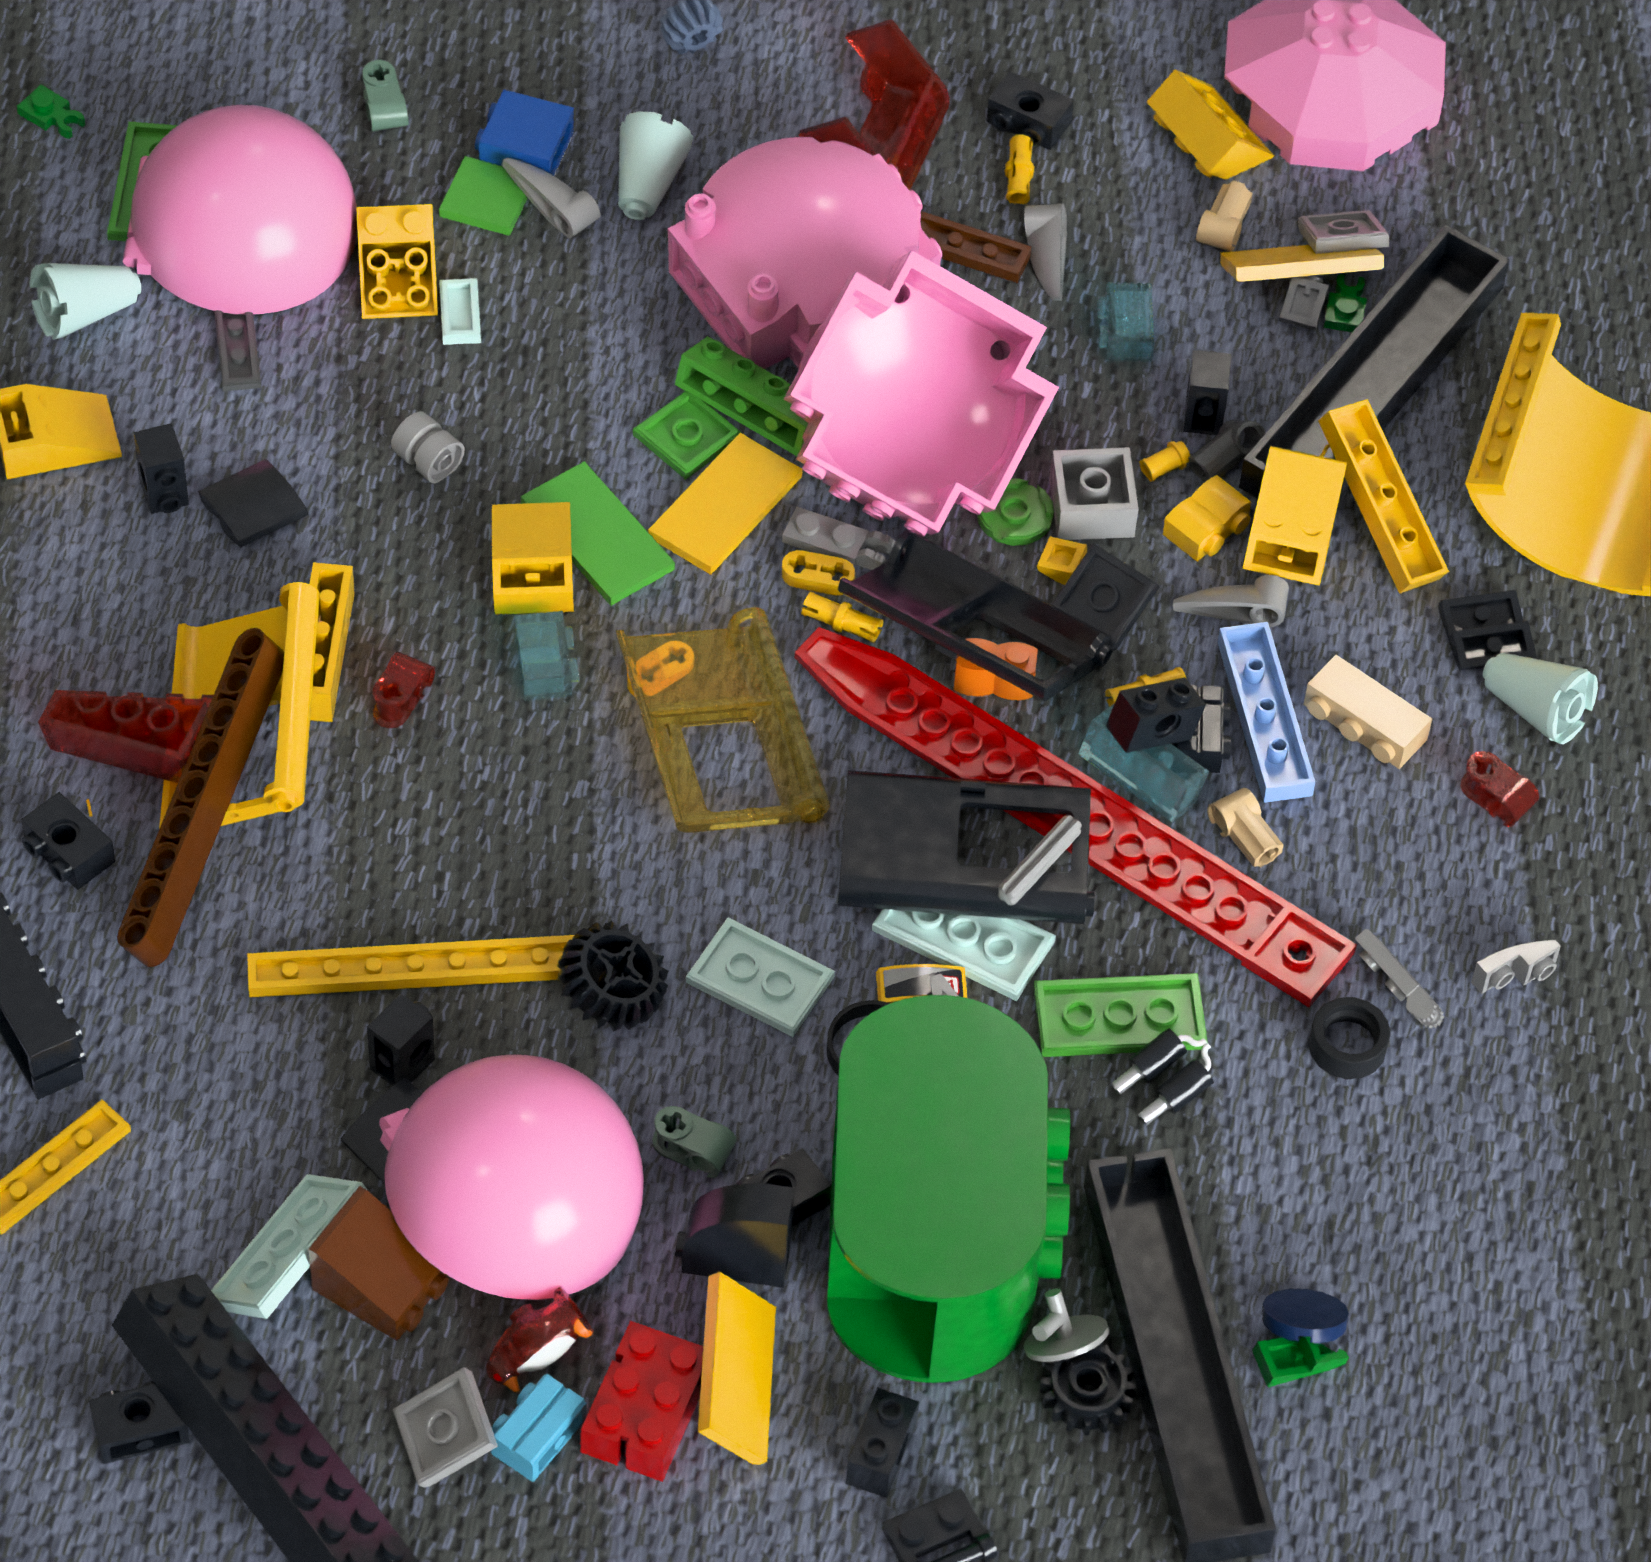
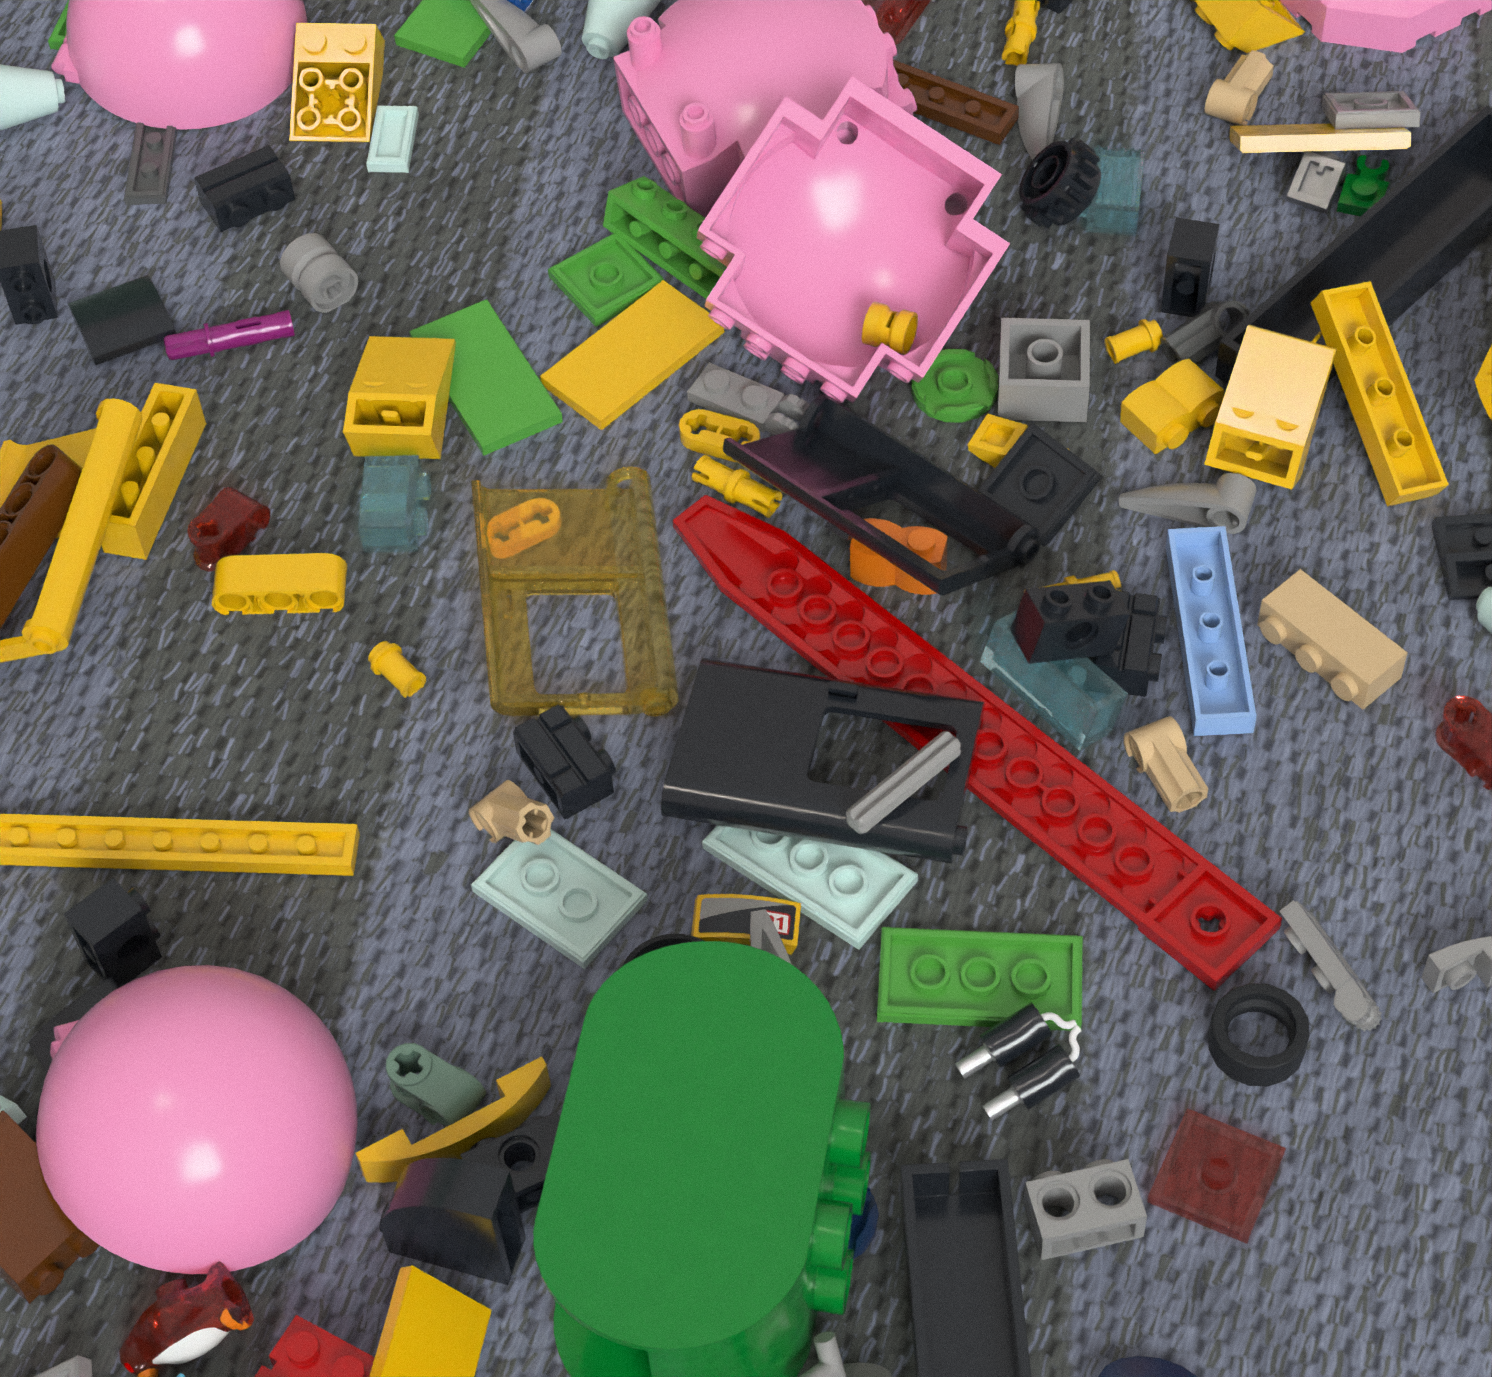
camera: 15 degrees right, 0 degrees up
(337, 370) = (245, 188): none -> black brick
(356, 511) = (229, 335): none -> magenta axle
(460, 733) = (279, 583): none -> yellow beam
(579, 800) = (390, 662): none -> yellow pin
(589, 964) = (356, 848): black gear -> none
(677, 1195) = (519, 1096): none -> yellow slope
(709, 914) = (511, 814): none -> tan piece
(743, 866) = (564, 760): none -> black brick
(954, 465) = (889, 328): none -> yellow wheel
(1081, 319) = (1060, 183): none -> black gear
(1235, 1191) = (1088, 1221): none -> light grey brick
(1330, 1149) = (1216, 1175): none -> clear red plate

